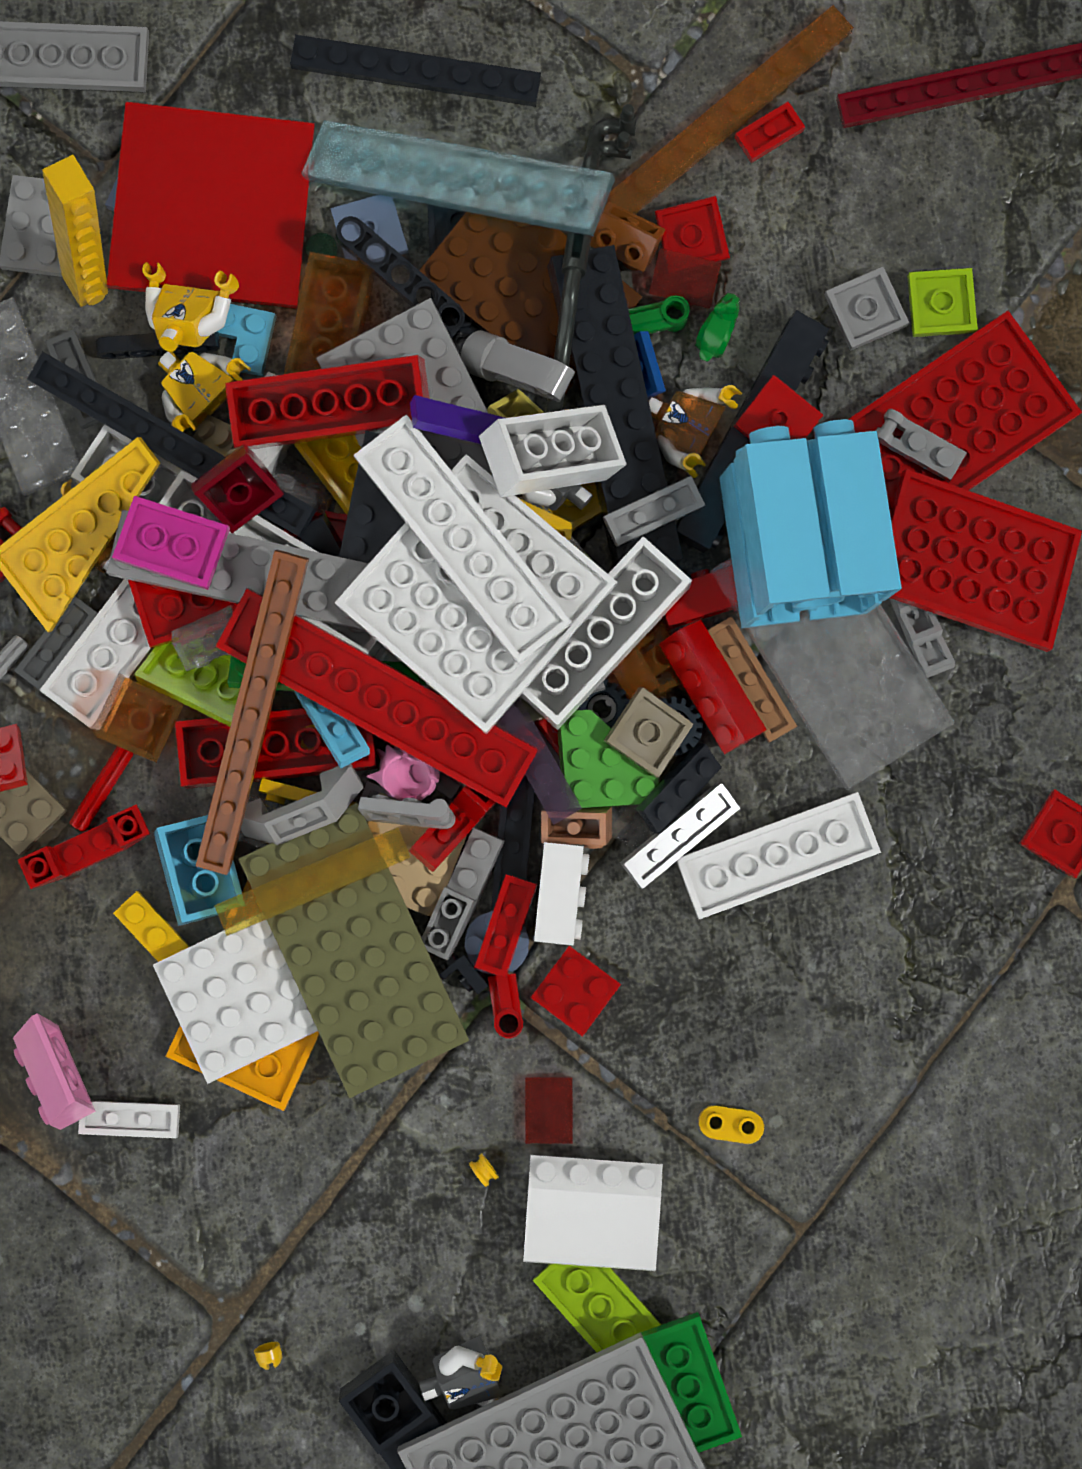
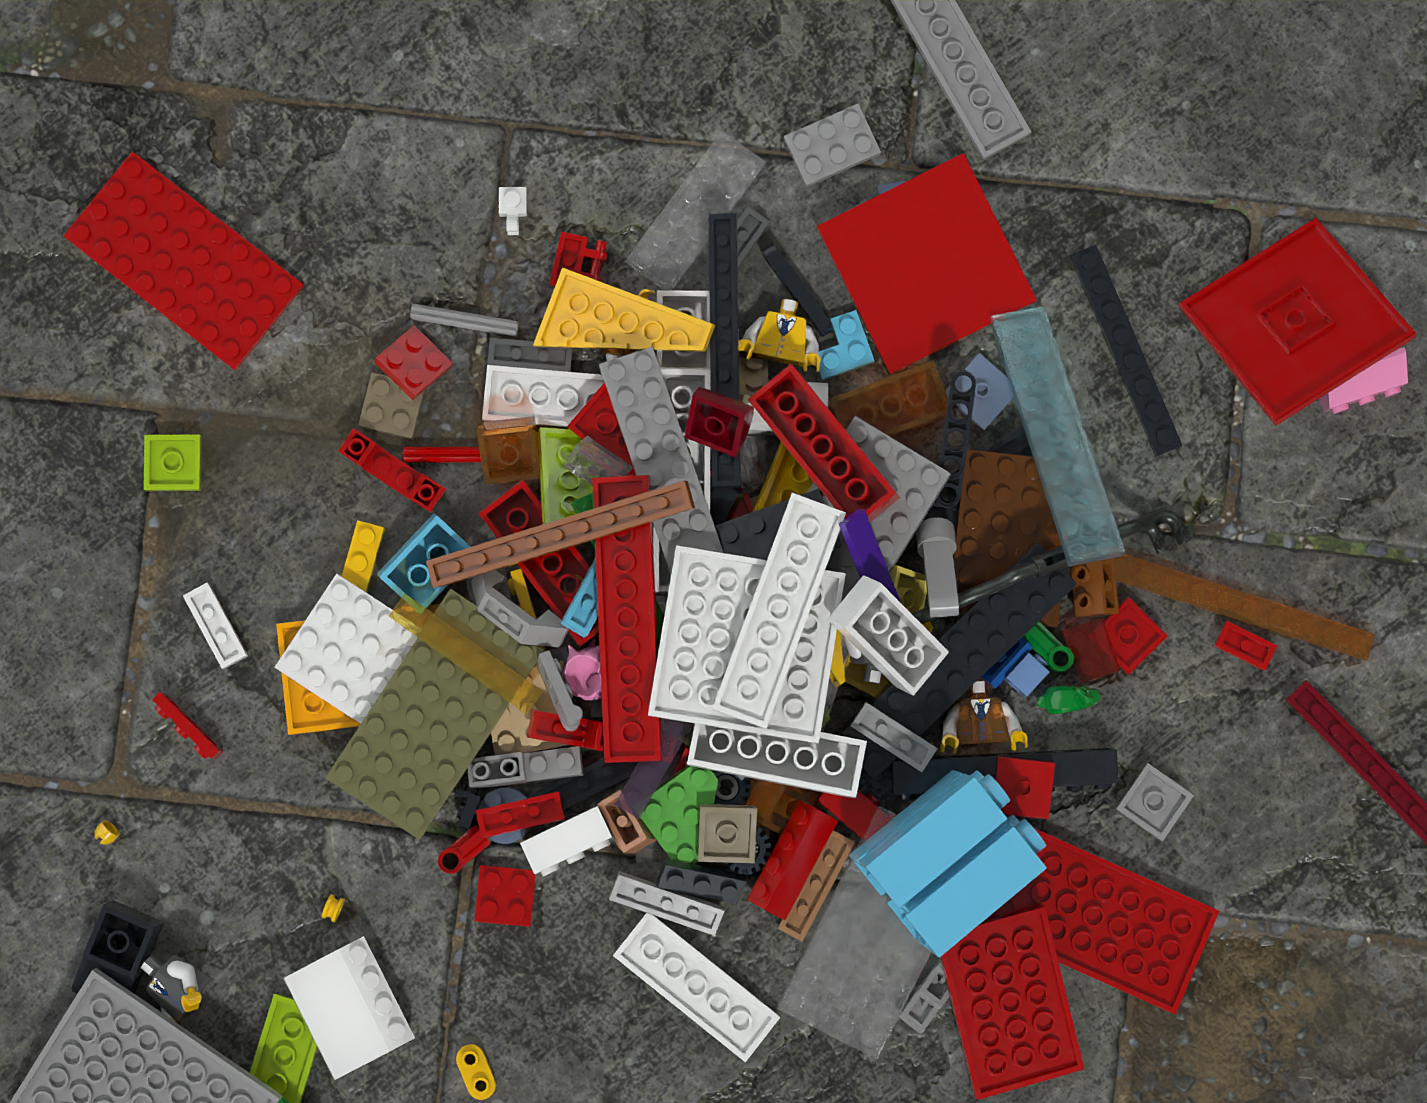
camera: 55 degrees right, 0 degrees up
(51, 1073) = (214, 549): bright pink slope -> none
(76, 230) = (831, 190): yellow brick -> none
(171, 542) = (648, 399): dark pink plate -> none
(186, 313) = (830, 298): torso -> none
(212, 1209) = (186, 726): none -> red plate
(322, 244) = (946, 364): clear green piece -> none
(548, 1110) = (405, 929): clear red plate -> none
(671, 352) = (1027, 674): none -> medium blue brick
(920, 446) = (1071, 906): light grey plate -> none
(942, 302) = (1195, 857): lime plate -> none

